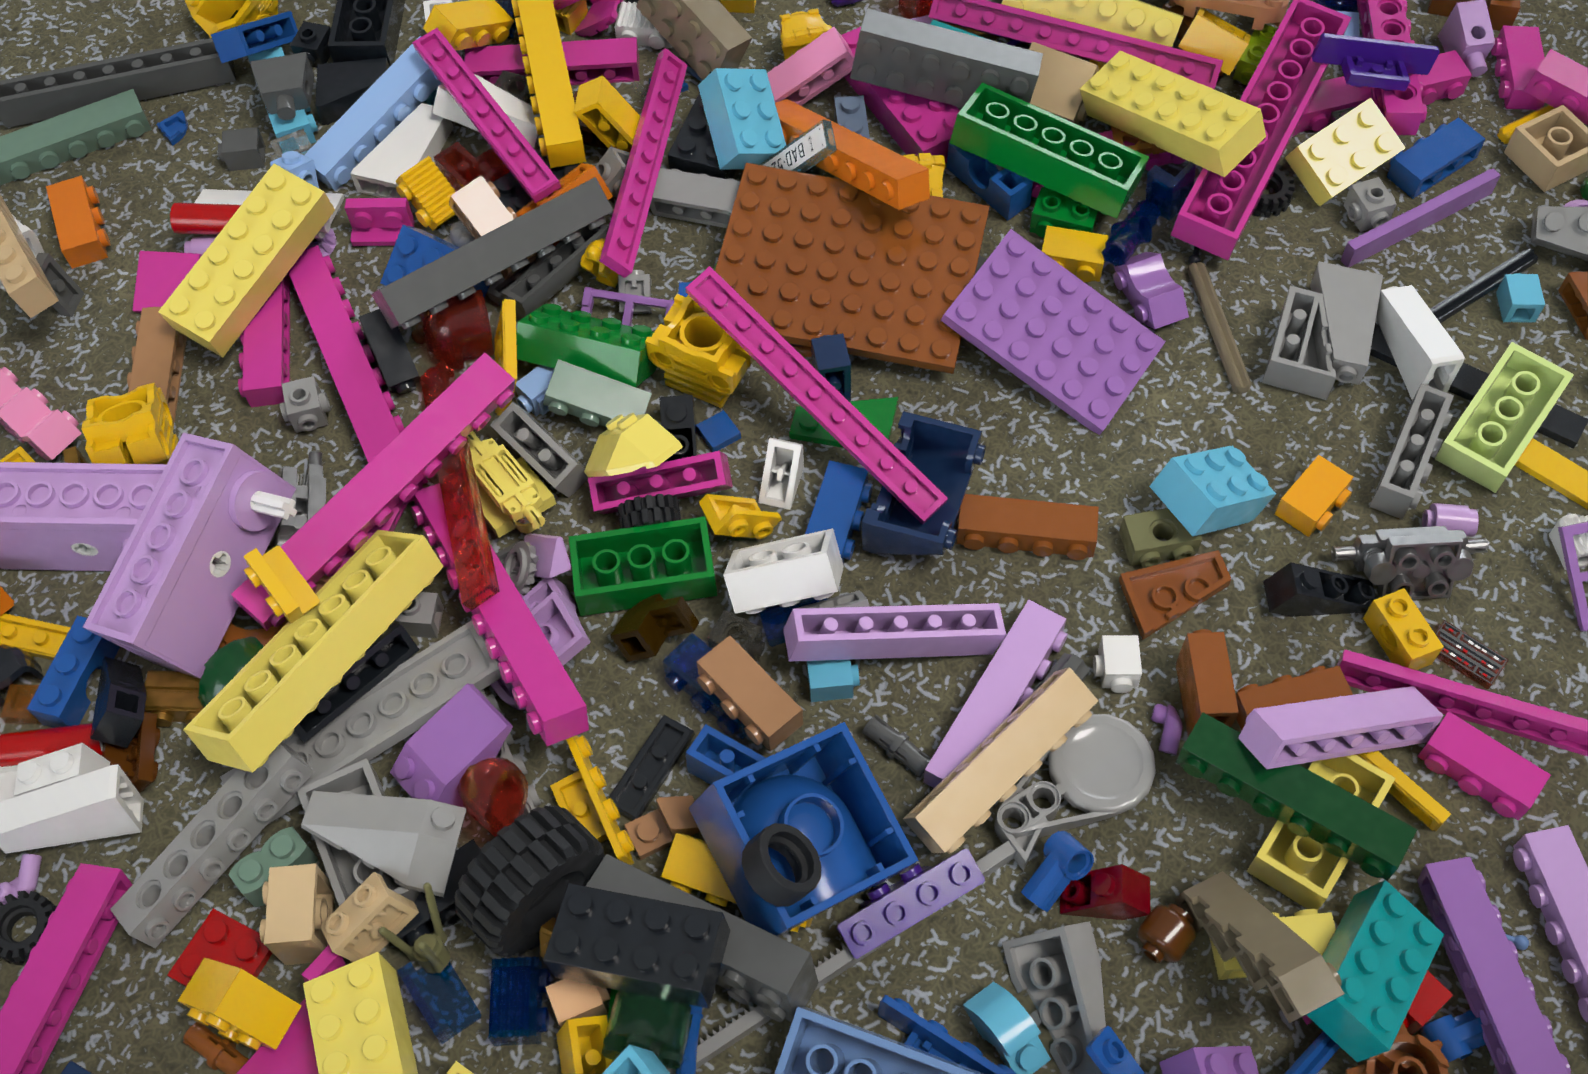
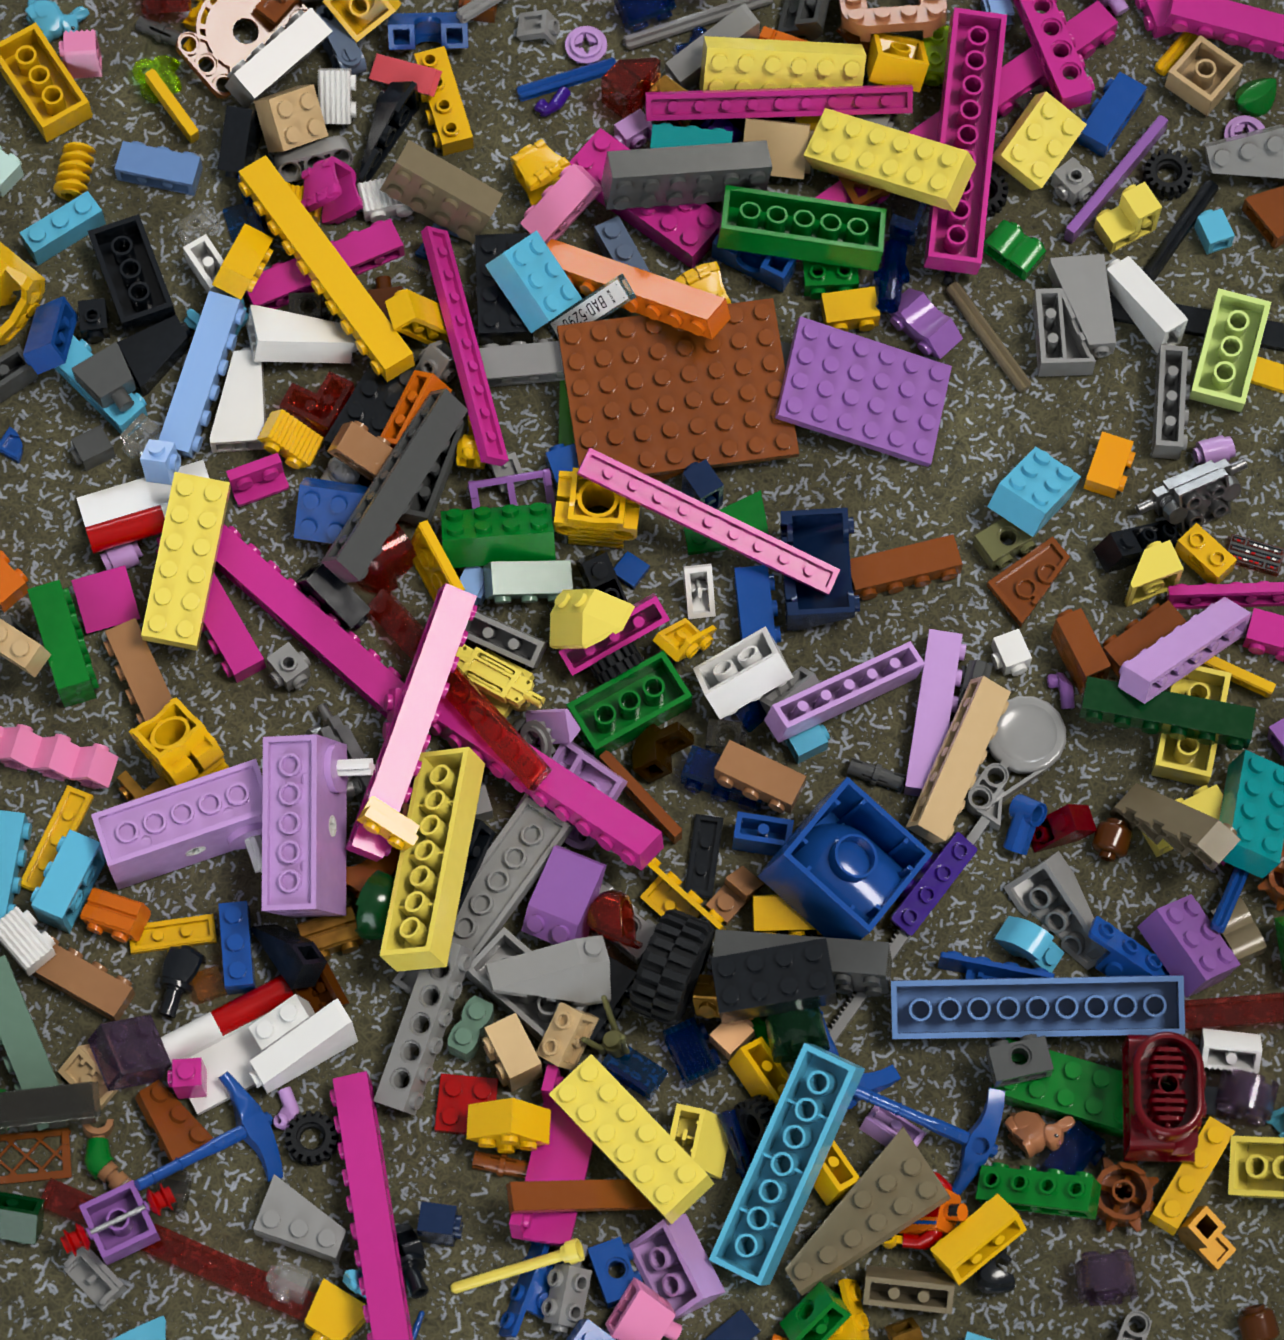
camera: 25 degrees left, 10 degrees up
(93, 306) = (65, 643): none -> green brick
(487, 115) = (314, 354): dark pink tile -> none
(609, 672) = (644, 799): none -> dark orange tile
(763, 875) = (844, 902): black tyre -> none
(1280, 251) = (1014, 249): none -> green brick
(1331, 626) = (1155, 572): none -> light yellow slope
(1375, 61) = (1041, 58): dark purple bracket -> none
(1428, 257) = (1130, 220): none -> light yellow brick
(1485, 217) = (1172, 161): none -> black tyre

